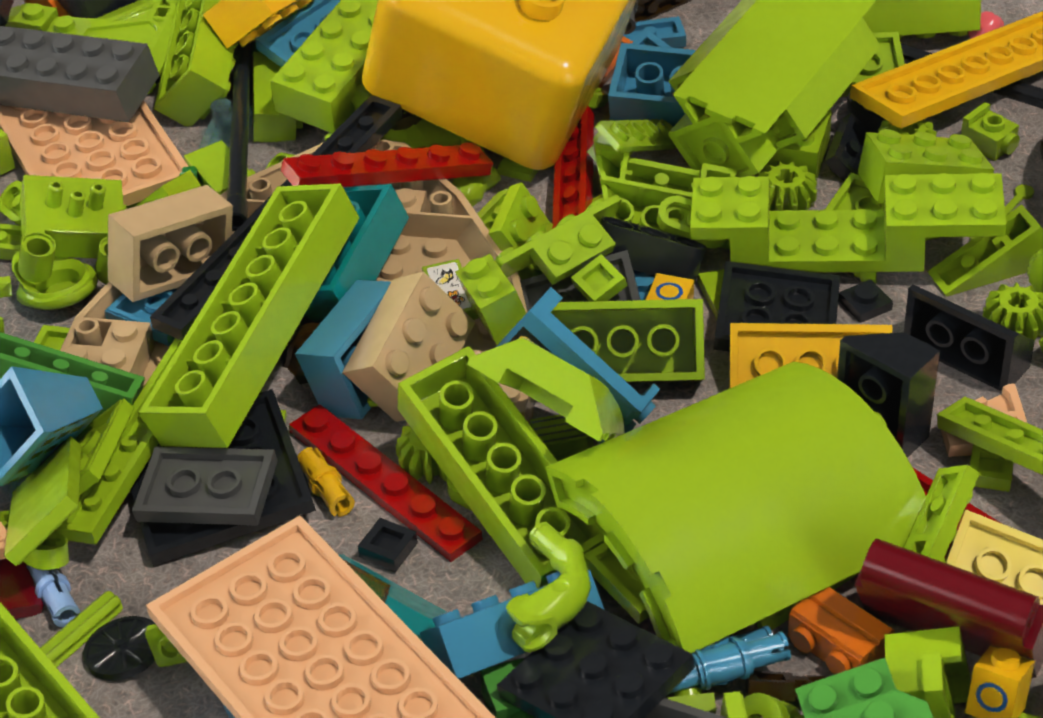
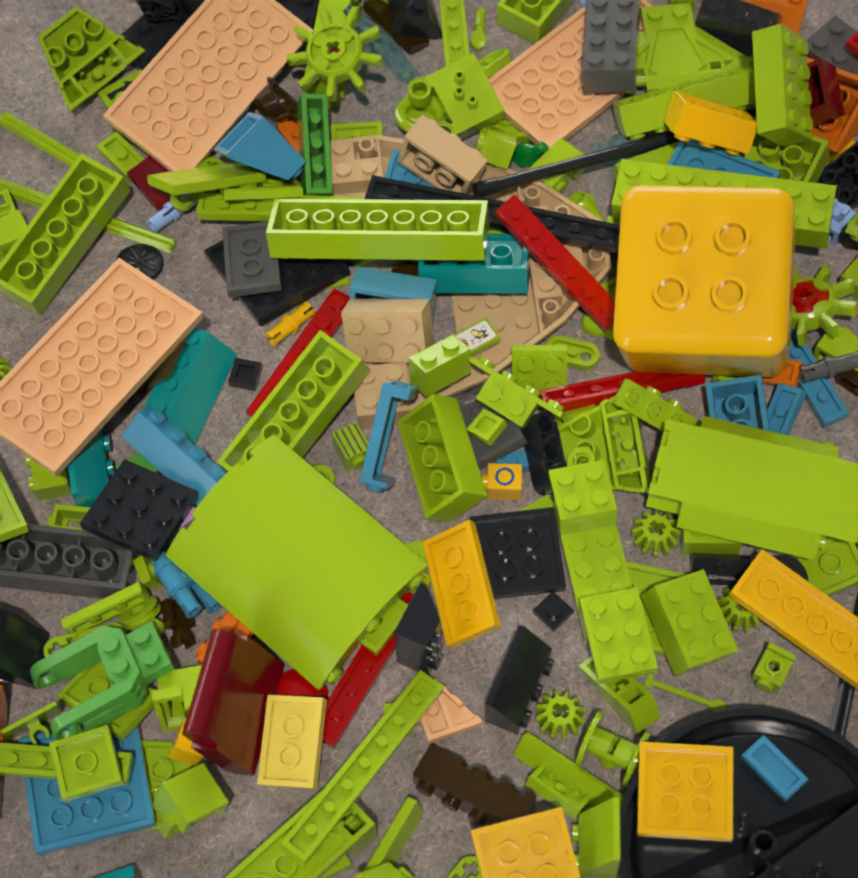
camera: 75 degrees right, 20 degrees up
(555, 384) = (335, 431): lime wedge -> none
(556, 604) = (164, 464): lime piece -> none
(942, 511) = (309, 683): lime plate -> none

